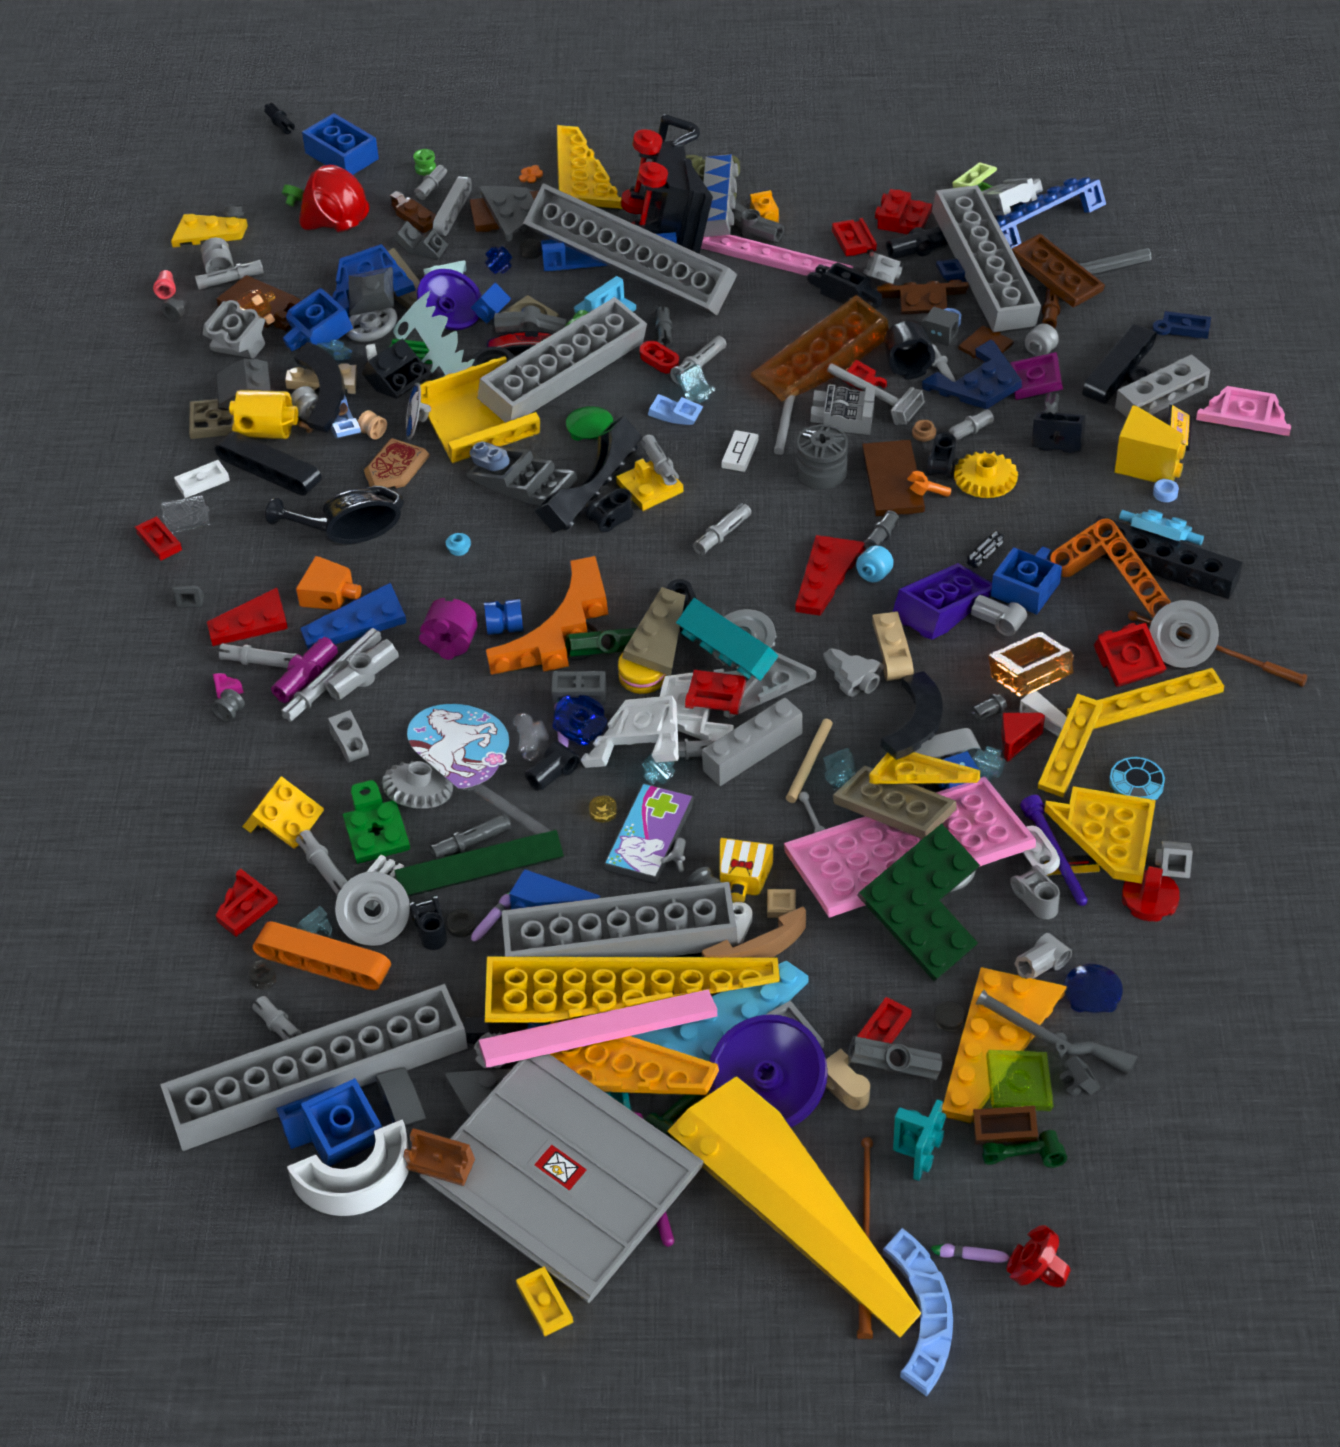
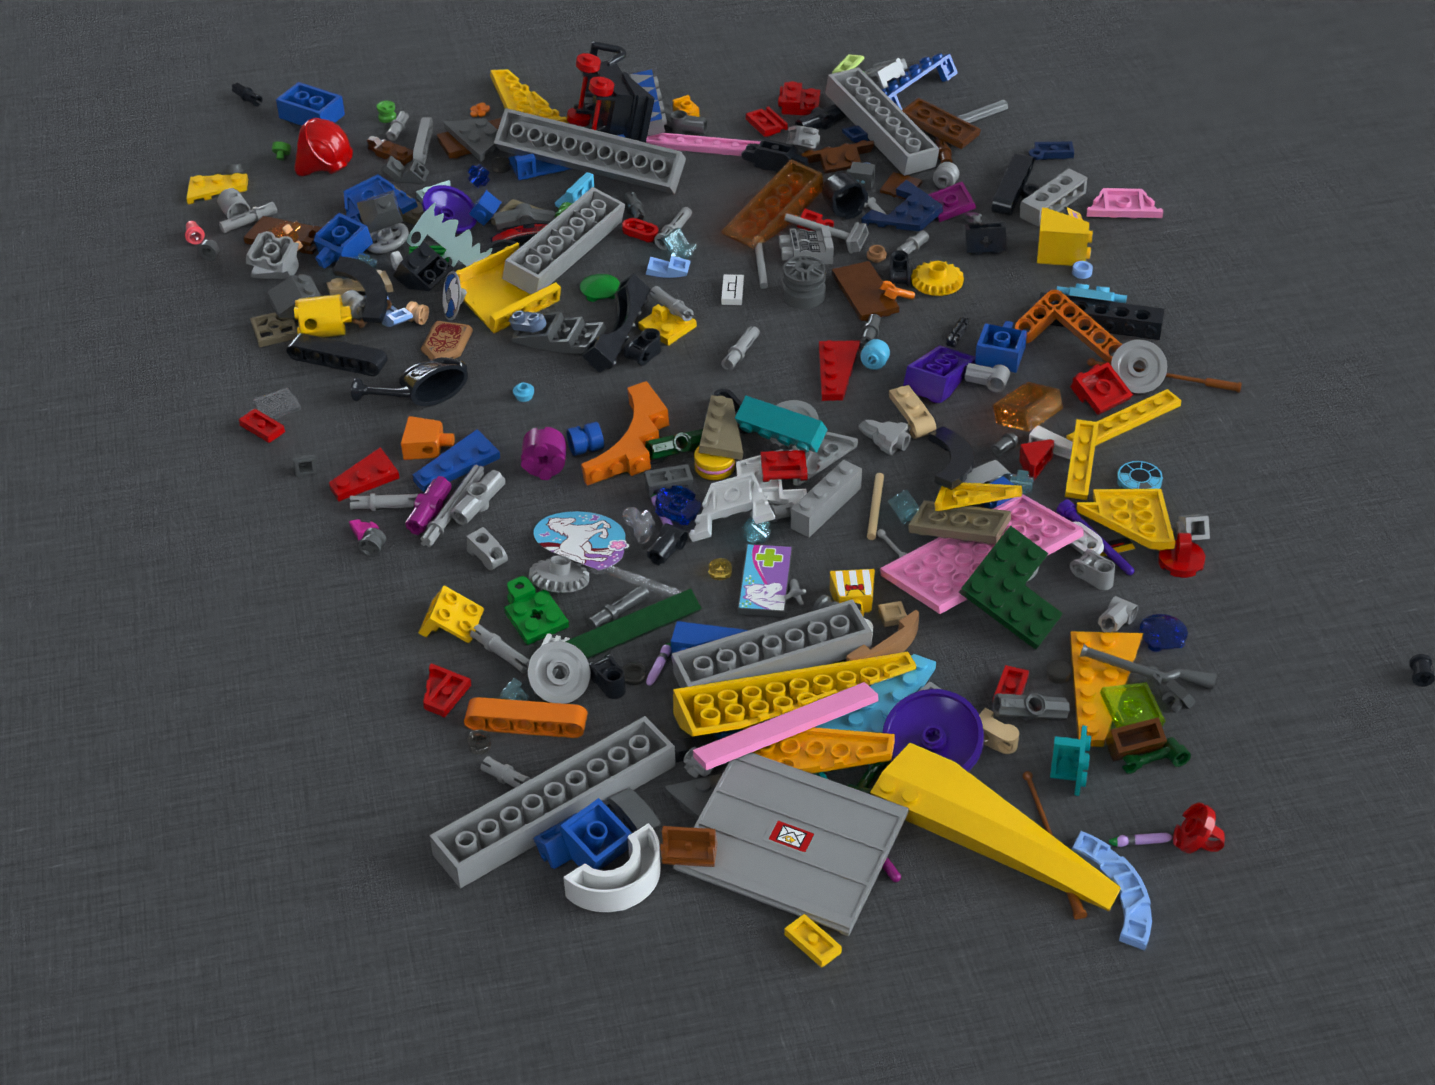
camera: 15 degrees left, 5 degrees down
(201, 478) = (282, 375): white plate -> none

